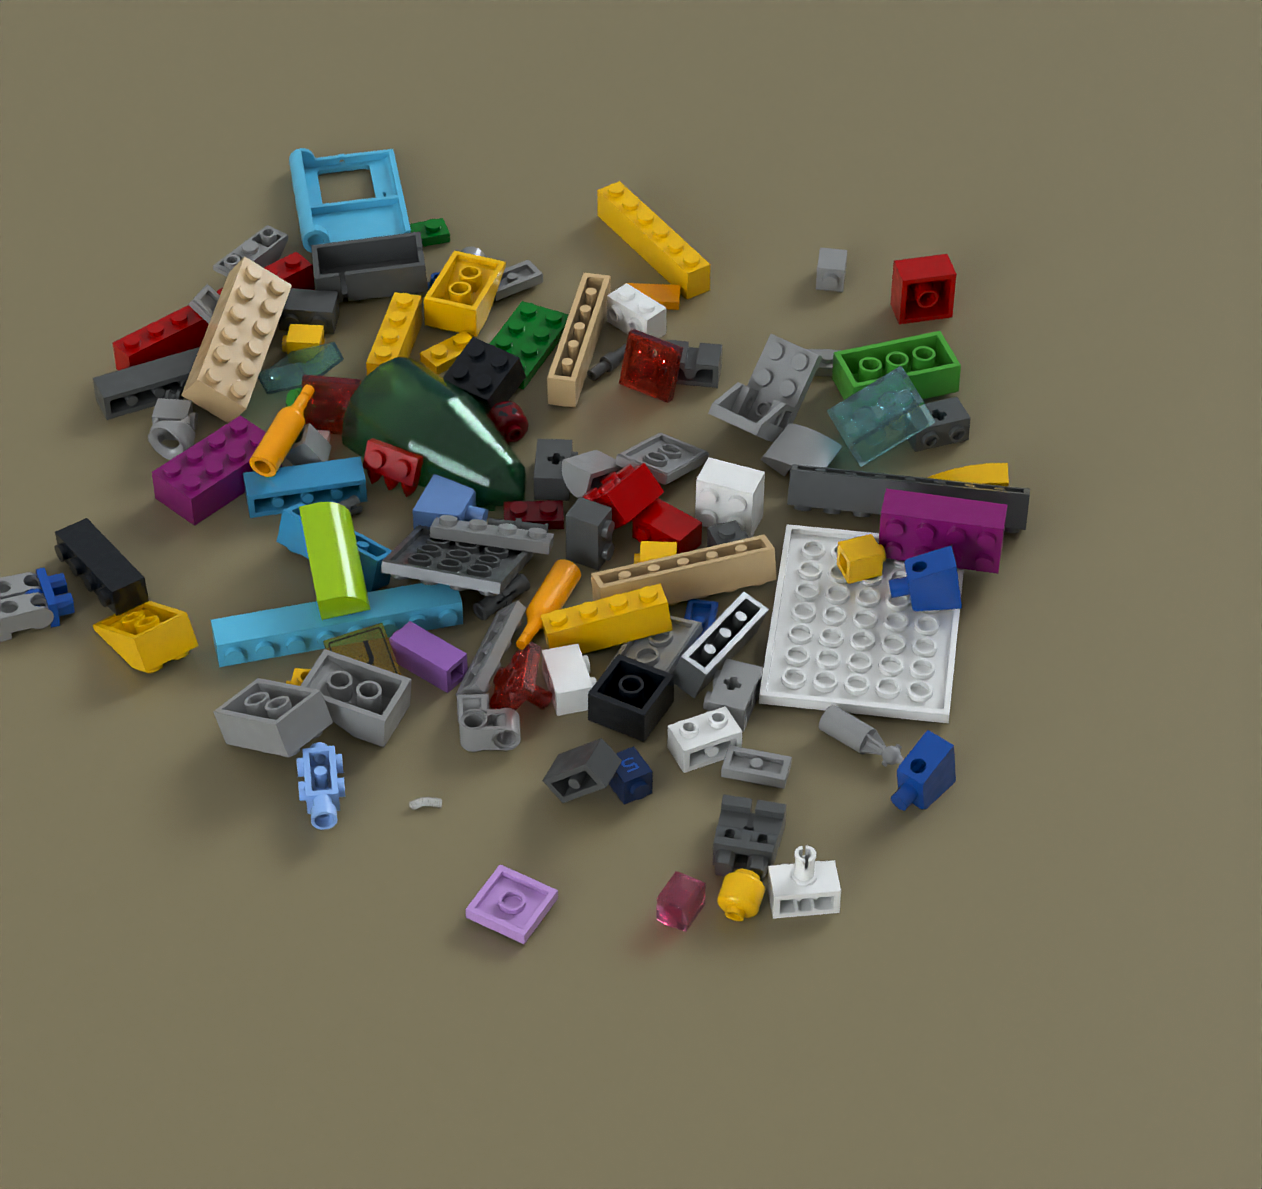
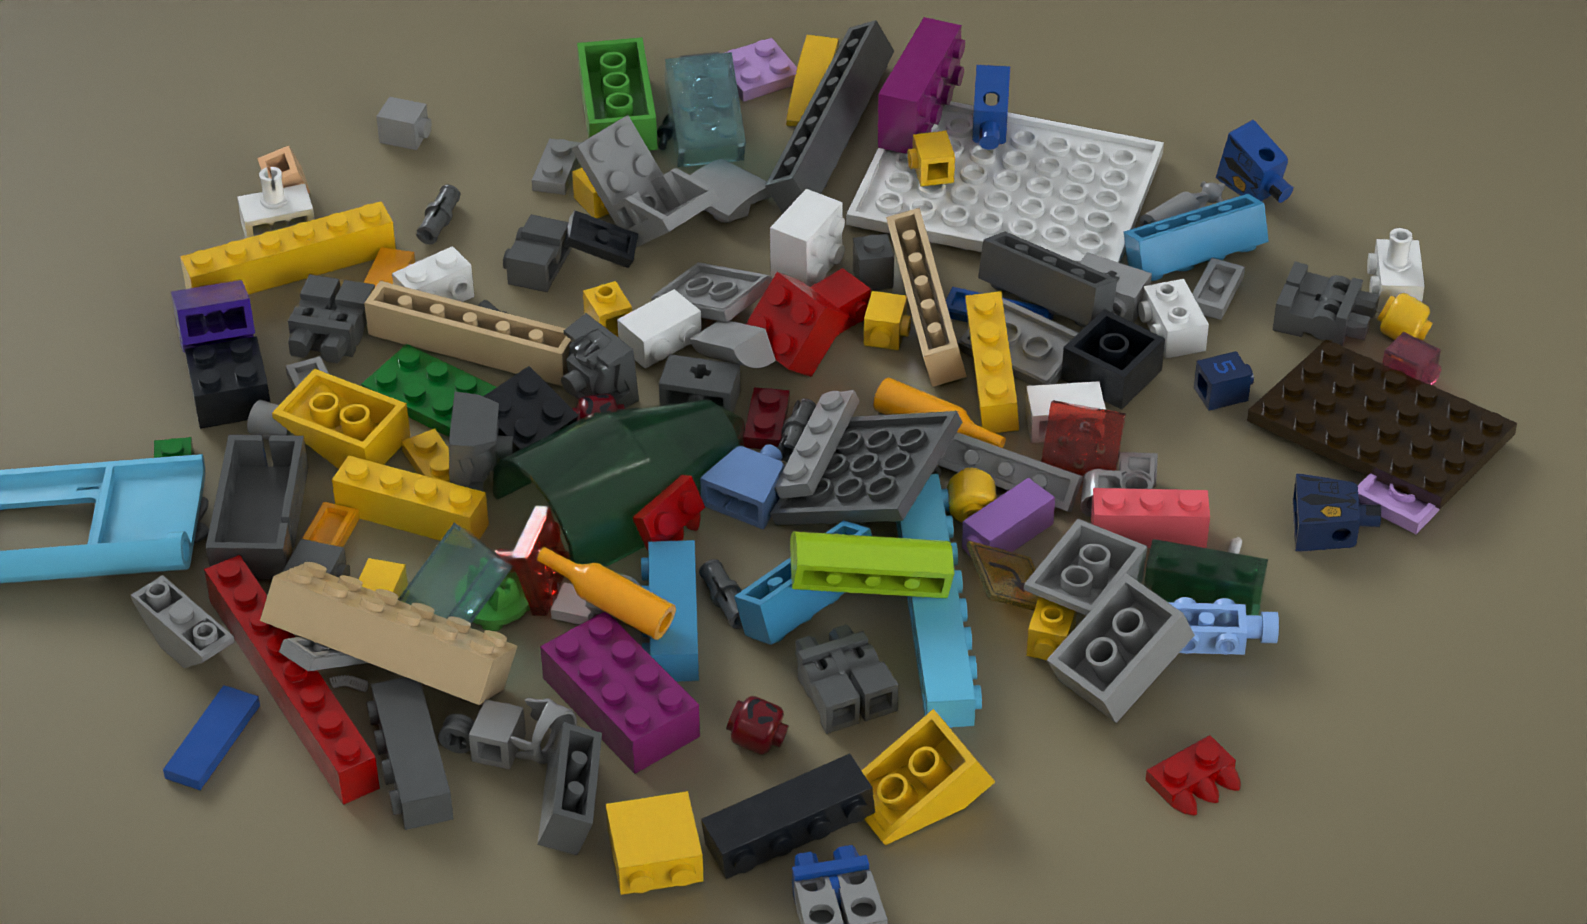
camera: 80 degrees left, 0 degrees up
(70, 499) = (654, 843): none -> yellow brick
(115, 455) = (570, 789): none -> dark grey brick
(157, 296) = (211, 737): none -> blue tile
(175, 791) = (1194, 772): none -> red plate
(193, 543) = (757, 725): none -> dark red head
(246, 581) = (845, 679): none -> dark grey hips
(361, 314) = (332, 524): none -> light orange tile
(378, 776) = (1205, 575): none -> clear green brick
(435, 341) = (475, 440): none -> dark grey brick
(444, 738) = (1153, 514): none -> coral brick
(453, 628) = (970, 492): none -> yellow head
(471, 850) = (1329, 513): none -> dark blue torso
(505, 234) = (226, 380): none -> black brick
(553, 404) = (599, 363): none -> dark grey brick
(559, 208) = (213, 314): none -> dark purple brick
(568, 268) = (328, 318): none -> dark grey hips
(582, 770) = (1230, 402): dark grey brick -> none
(589, 533) = (841, 355): dark grey brick -> none
(595, 885) = (1382, 423): none -> dark brown plate
(608, 432) = (660, 327): none -> white brick
(630, 409) = (606, 305): none -> yellow brick
(644, 370) = (558, 272): clear red plate -> none
(699, 224) = (274, 206): none -> white brick
(709, 385) = (601, 239): none -> black plate
(728, 307) = (438, 214): none -> dark grey pin
(738, 217) = (289, 165): none -> light nougat brick
(811, 741) = (1197, 236): none -> dark azure brick
(923, 288) = (481, 51): red brick -> none
(981, 448) = (762, 69): none -> lavender plate

